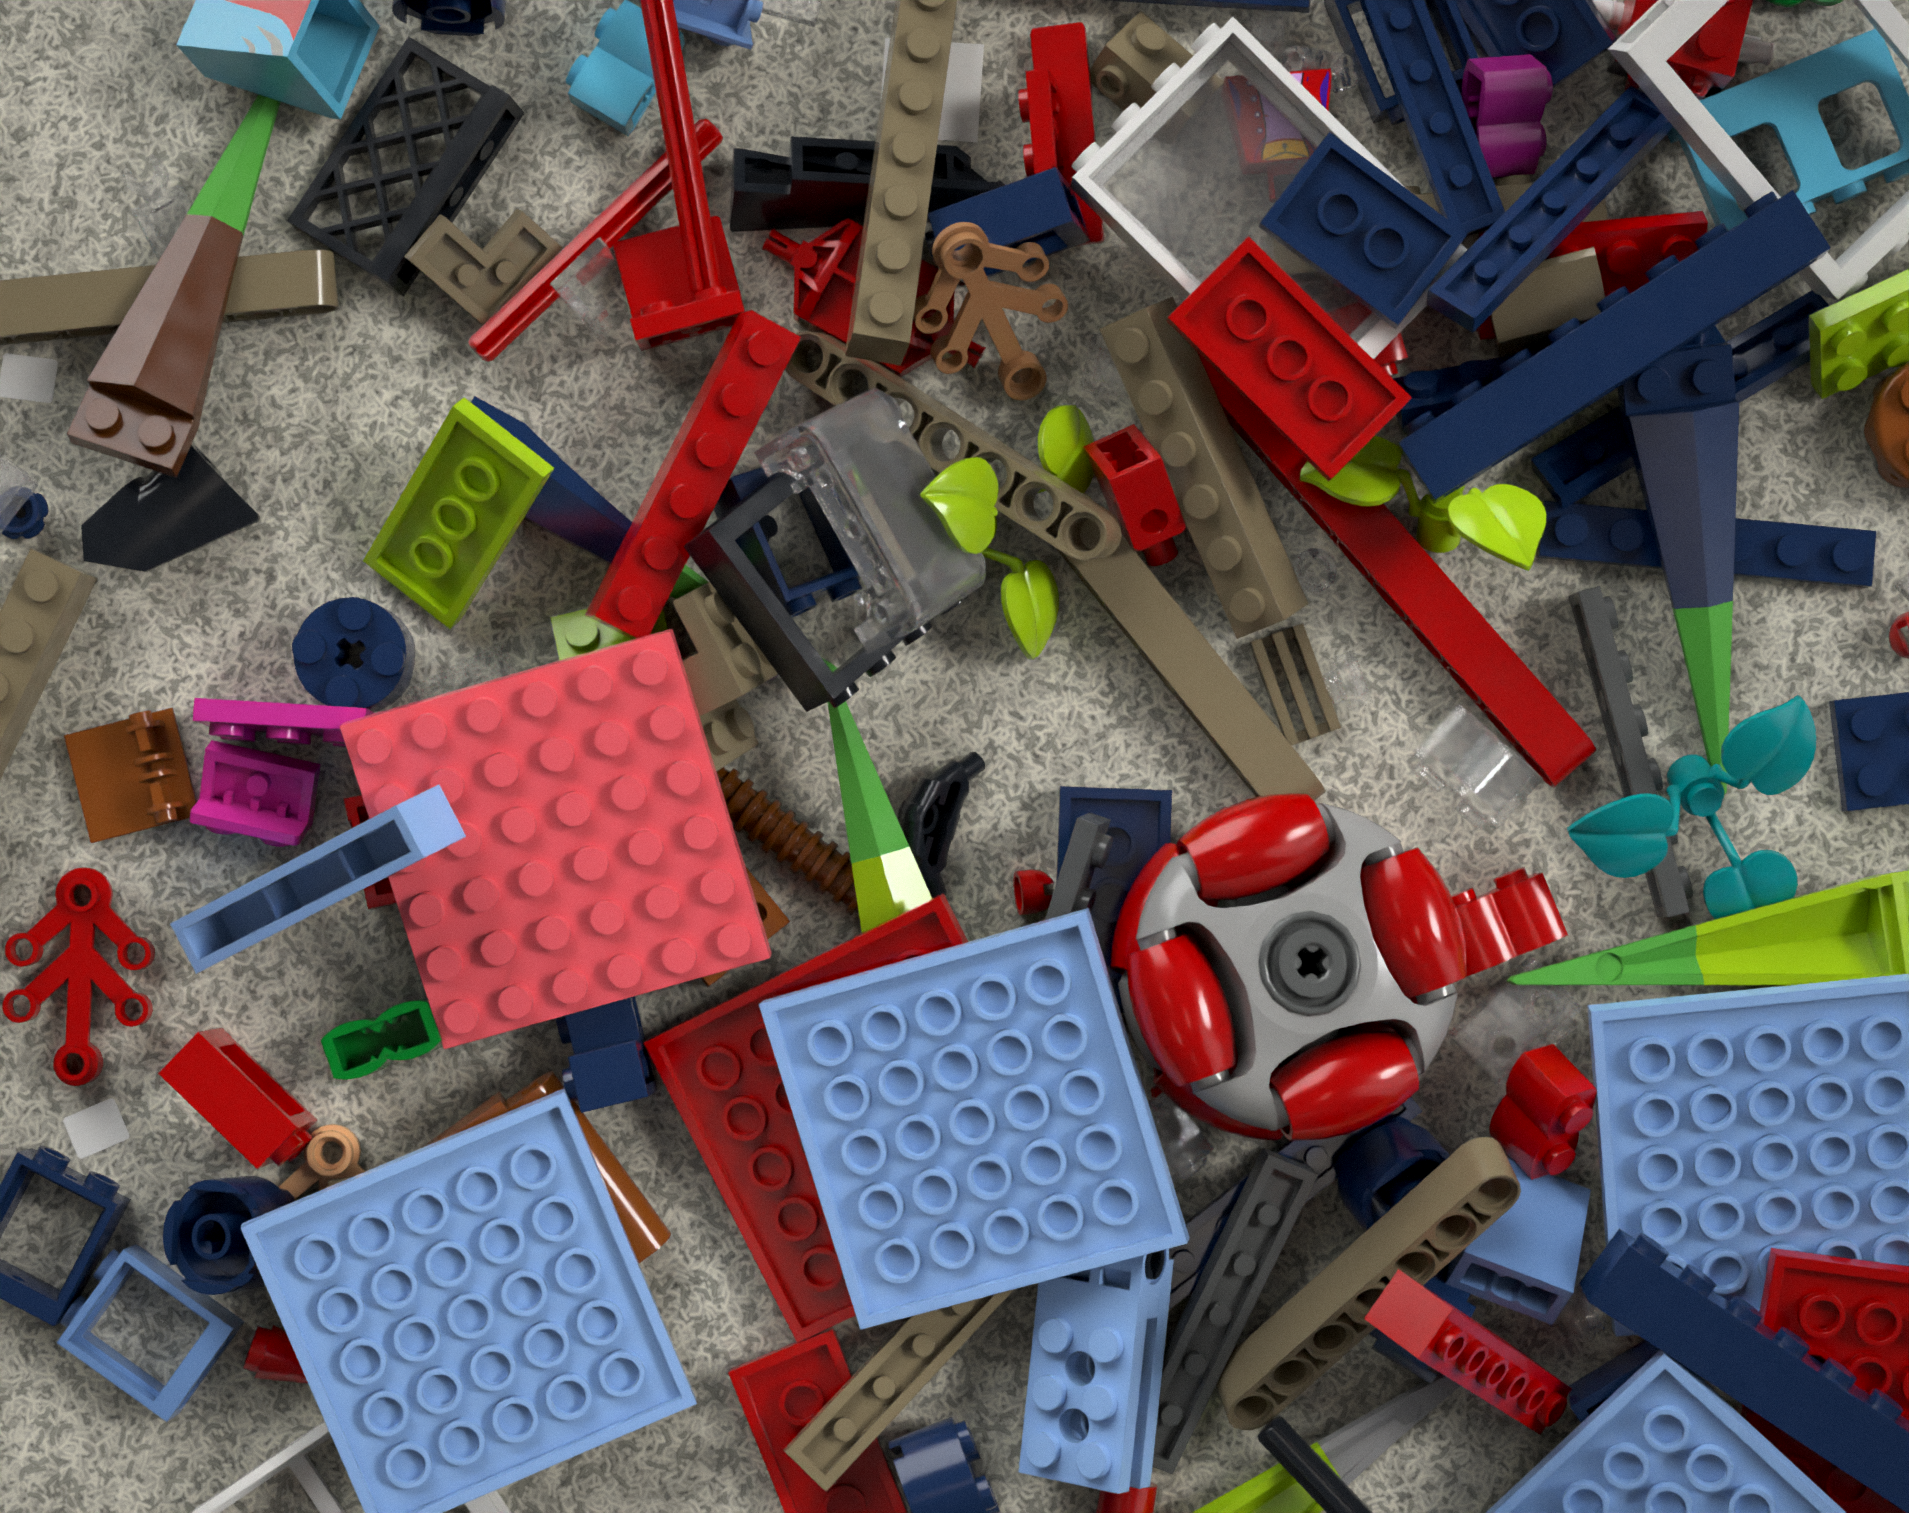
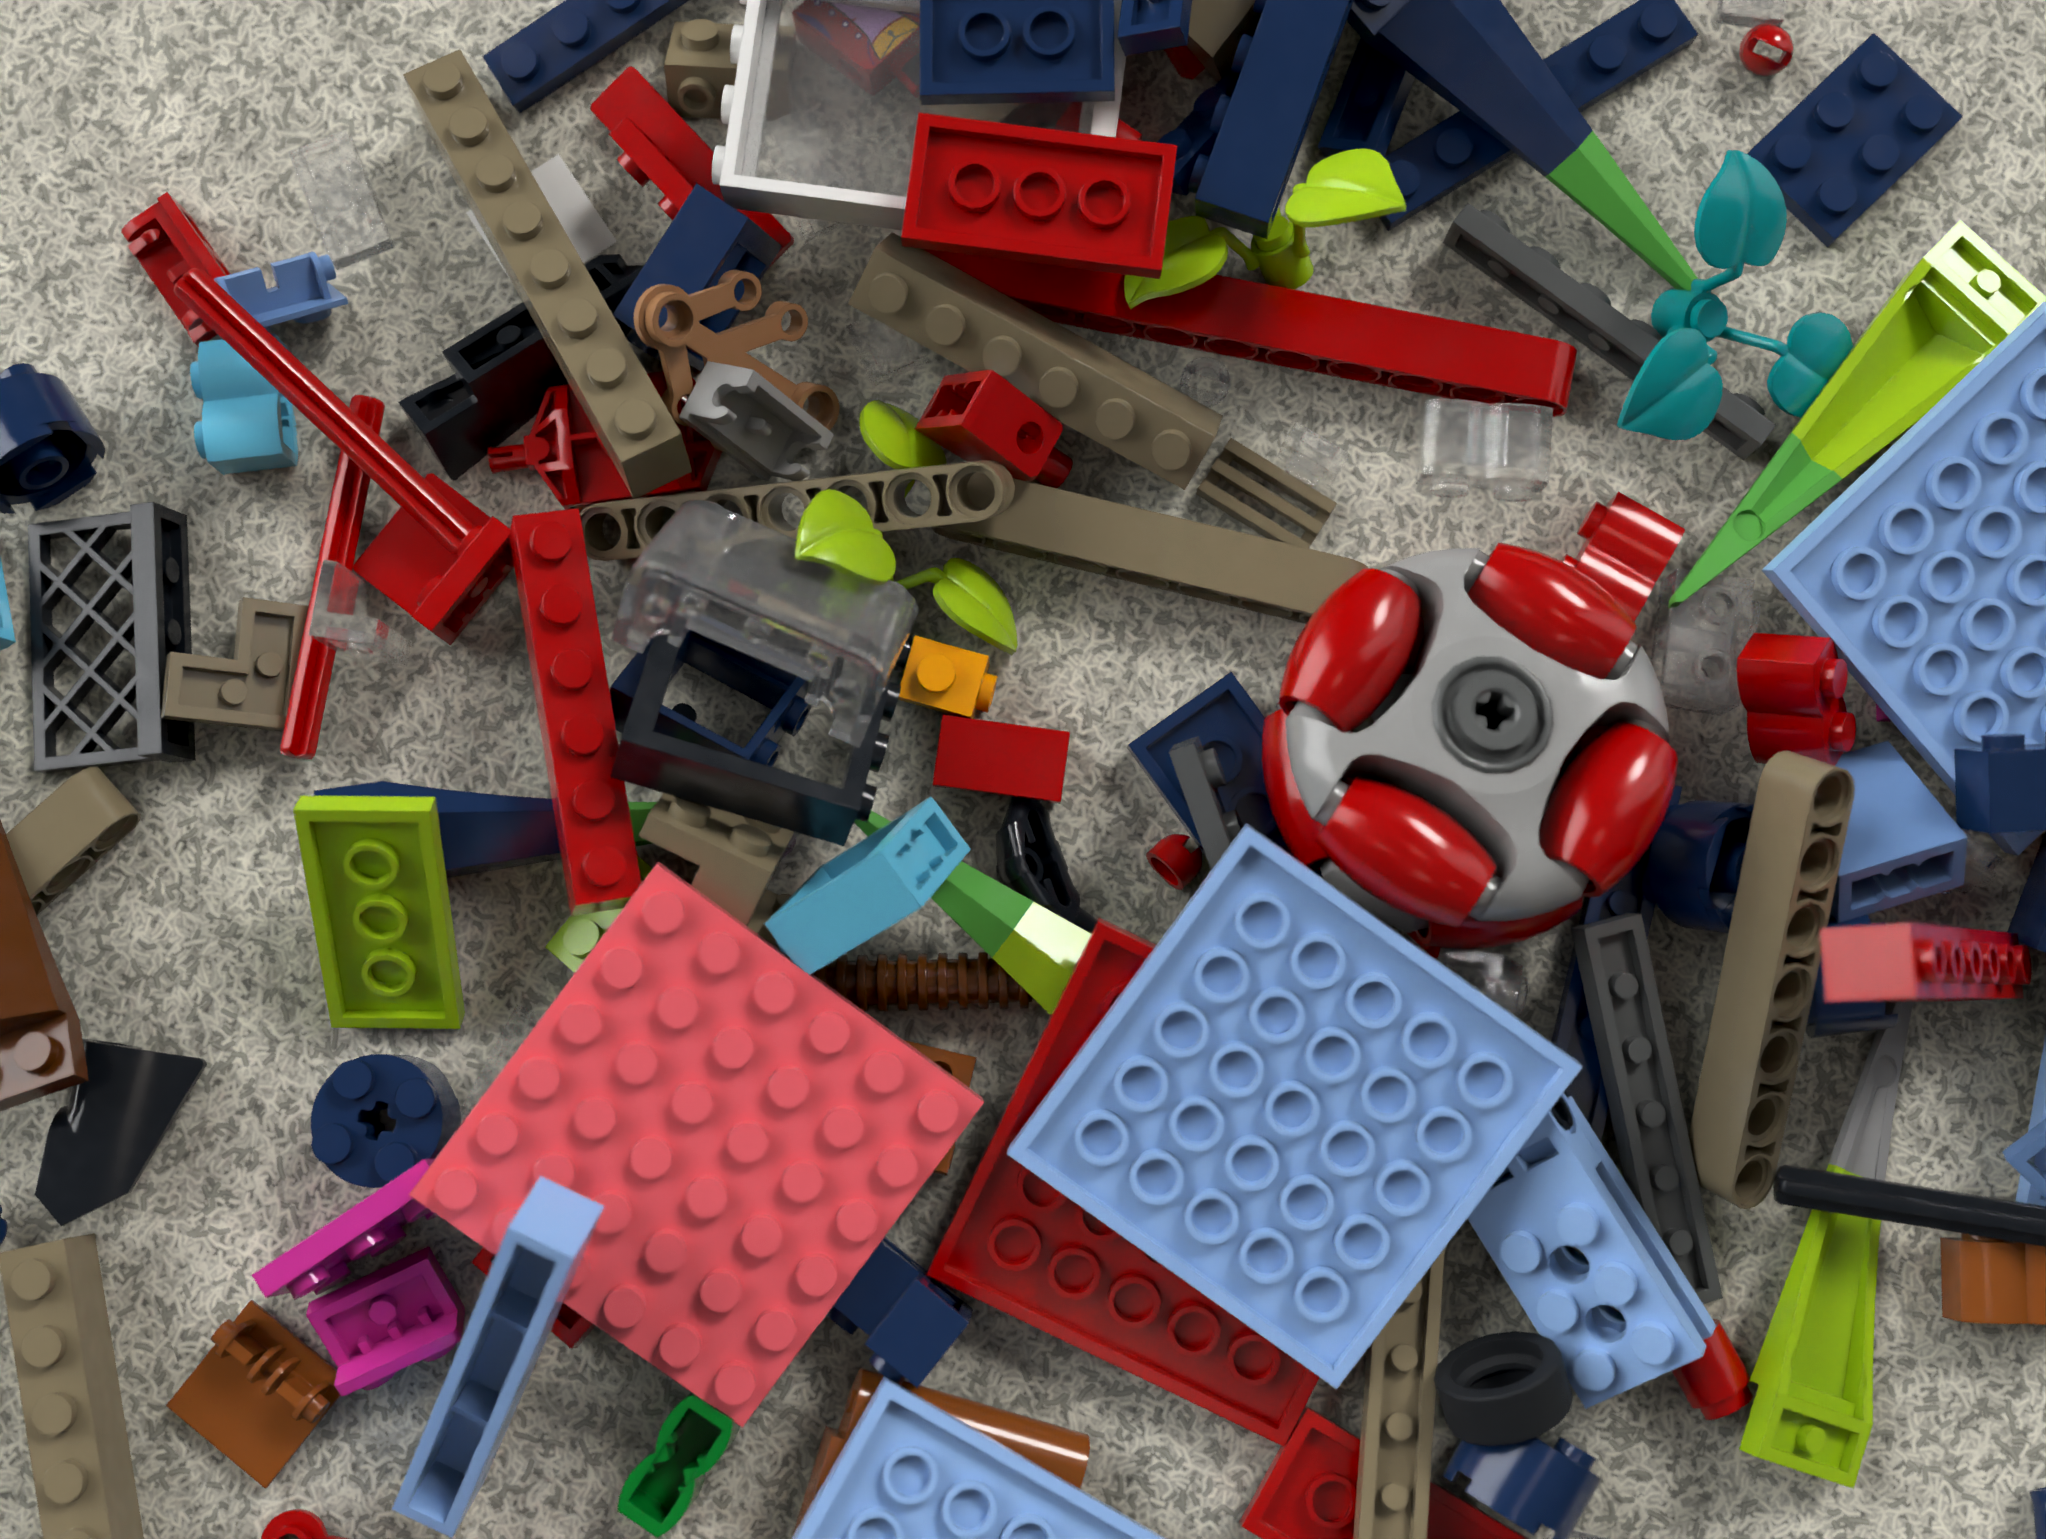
camera: 30 degrees left, 5 degrees down
(802, 753) = (868, 887): none -> medium azure window
(963, 730) = (1001, 758): none -> red hinge
(968, 362) = (752, 421): none -> light grey hinge
(969, 644) = (947, 679): none -> light orange bracket
(972, 1414) = (1503, 1388): none -> black tyre

